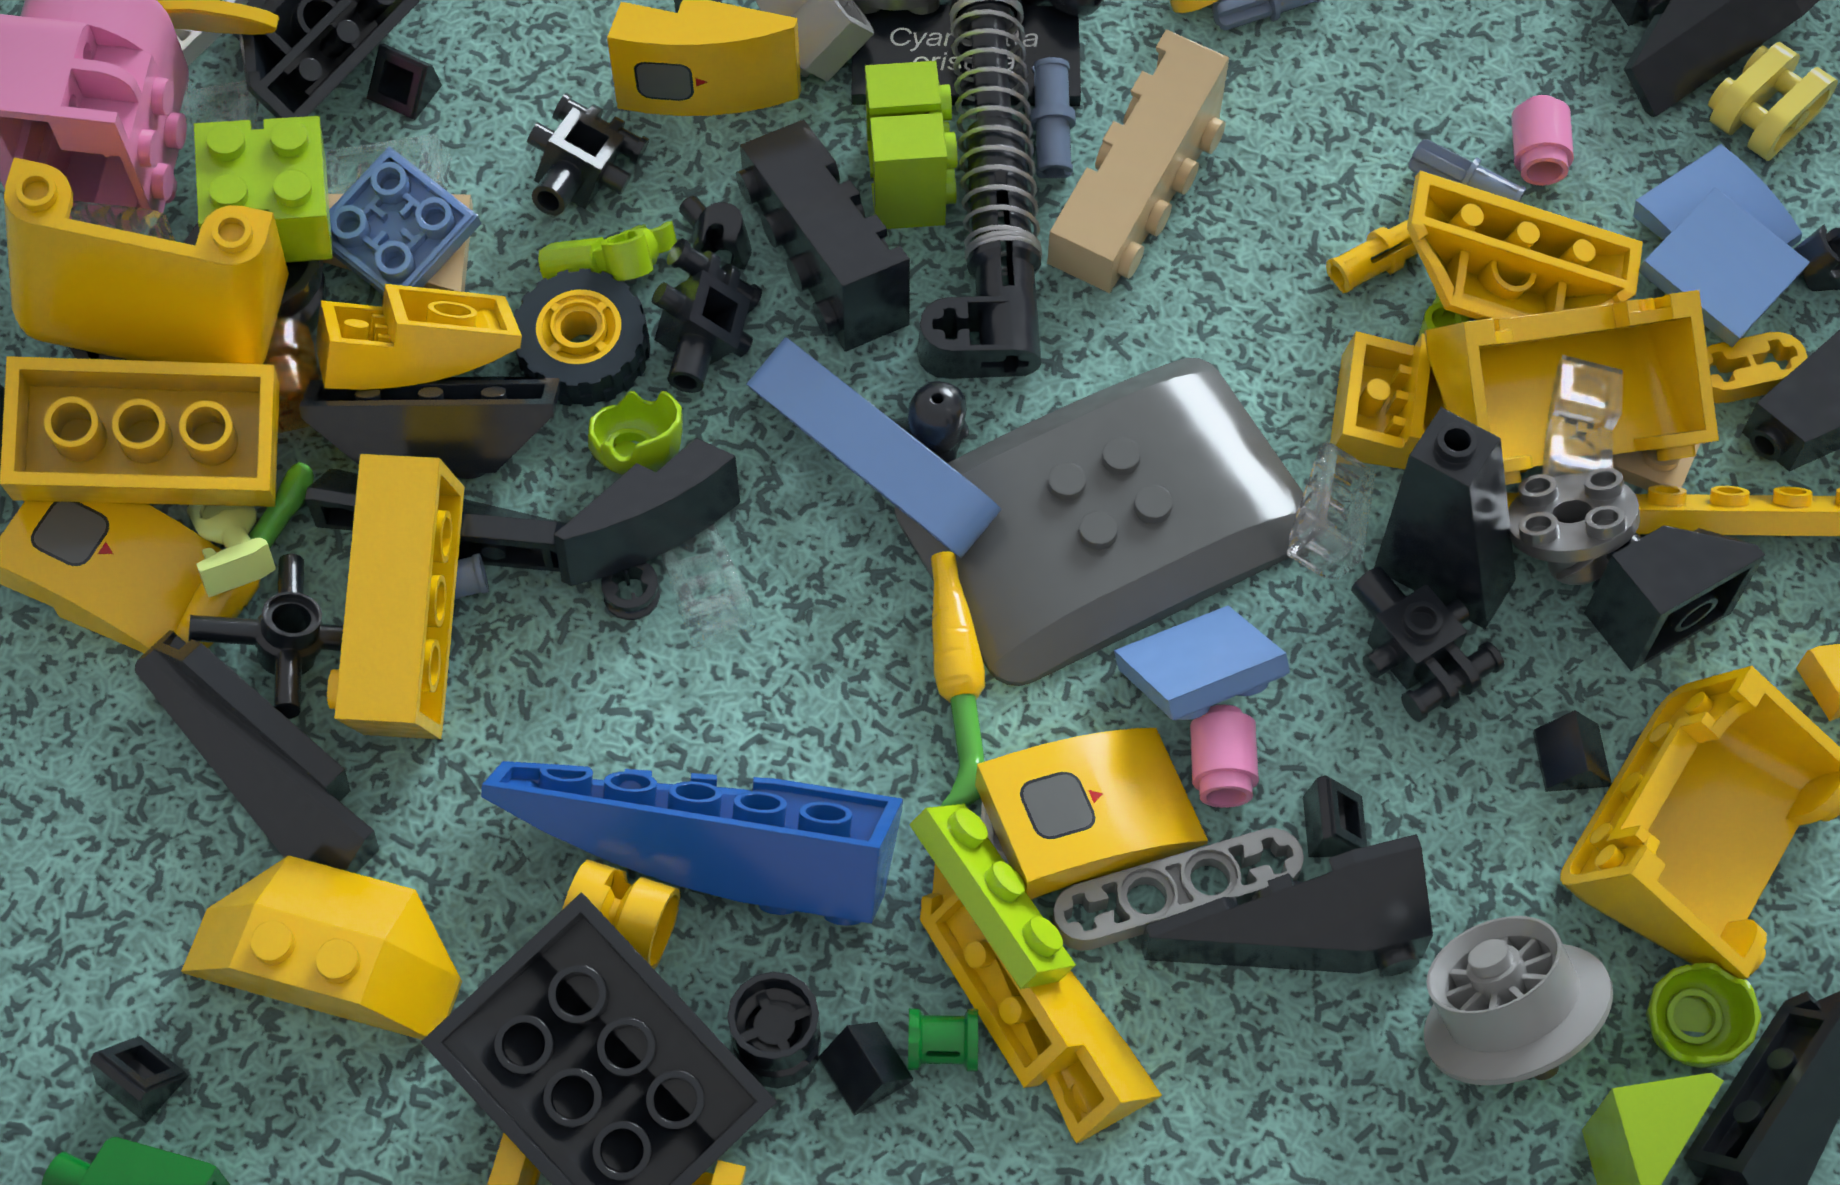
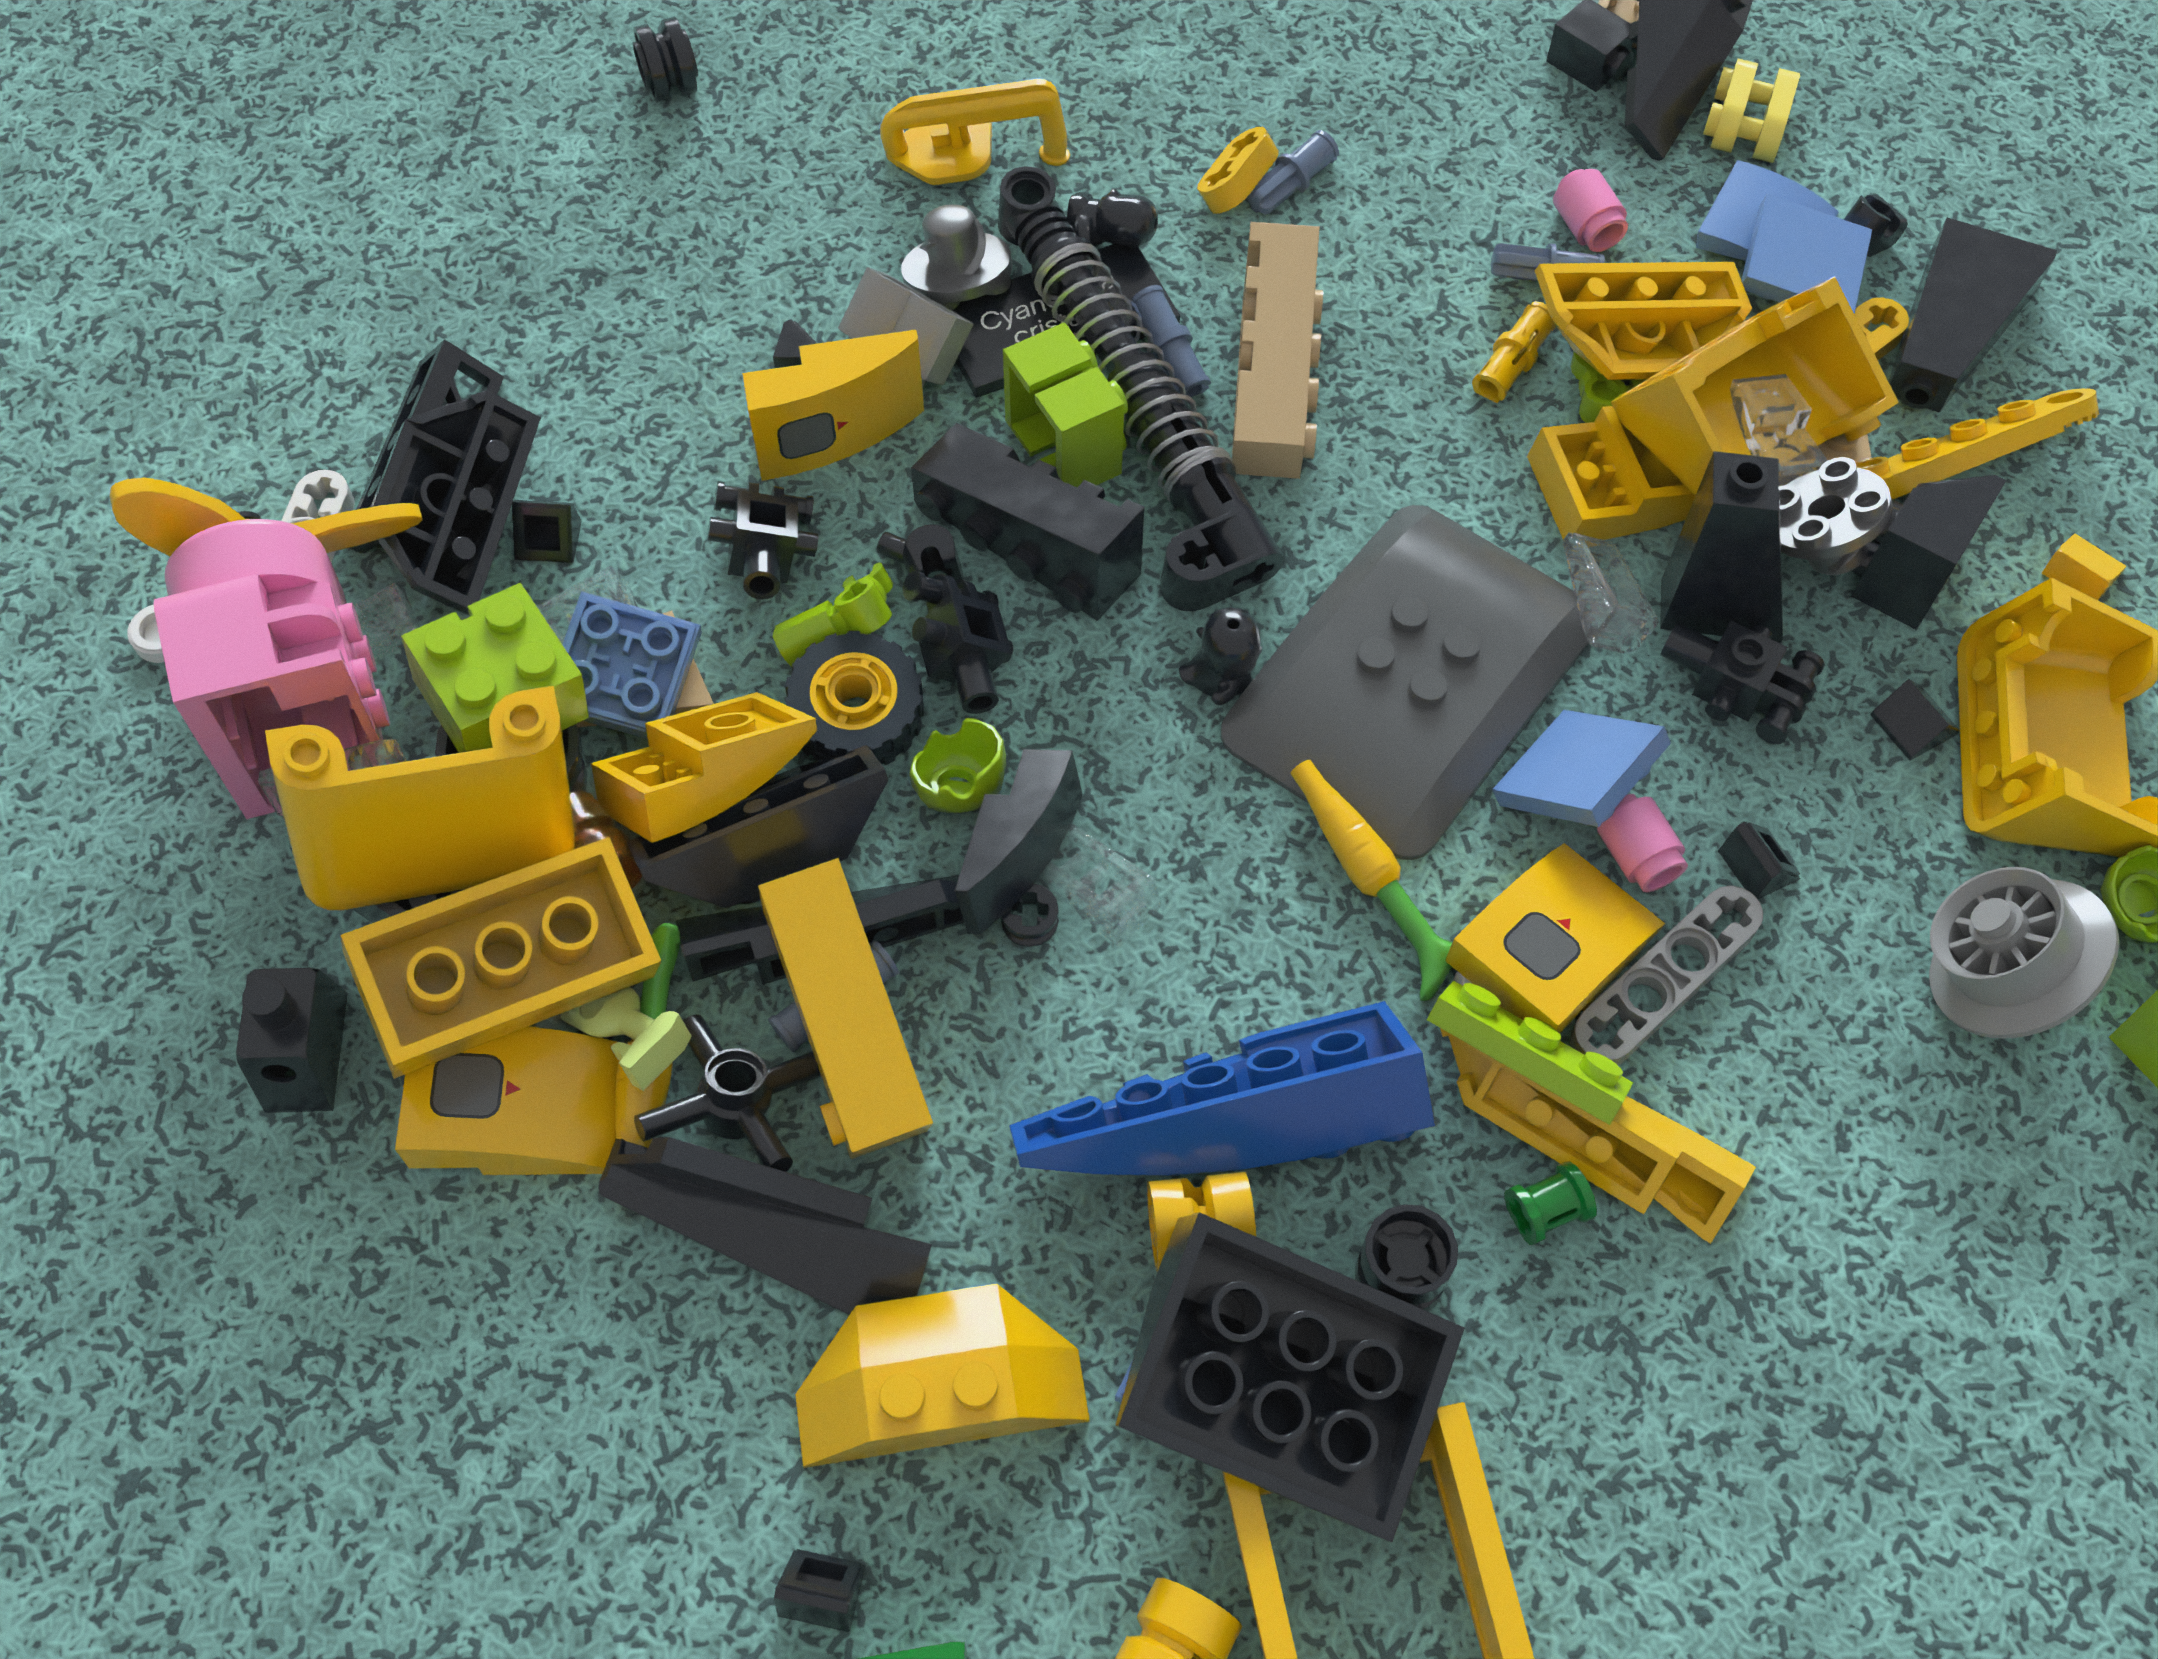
camera: 25 degrees left, 0 degrees up
(864, 1066) = (1492, 1261): black slope -> none
(874, 447) = (1187, 693): medium blue beam -> none
(1346, 921) = (1836, 940): black wedge -> none

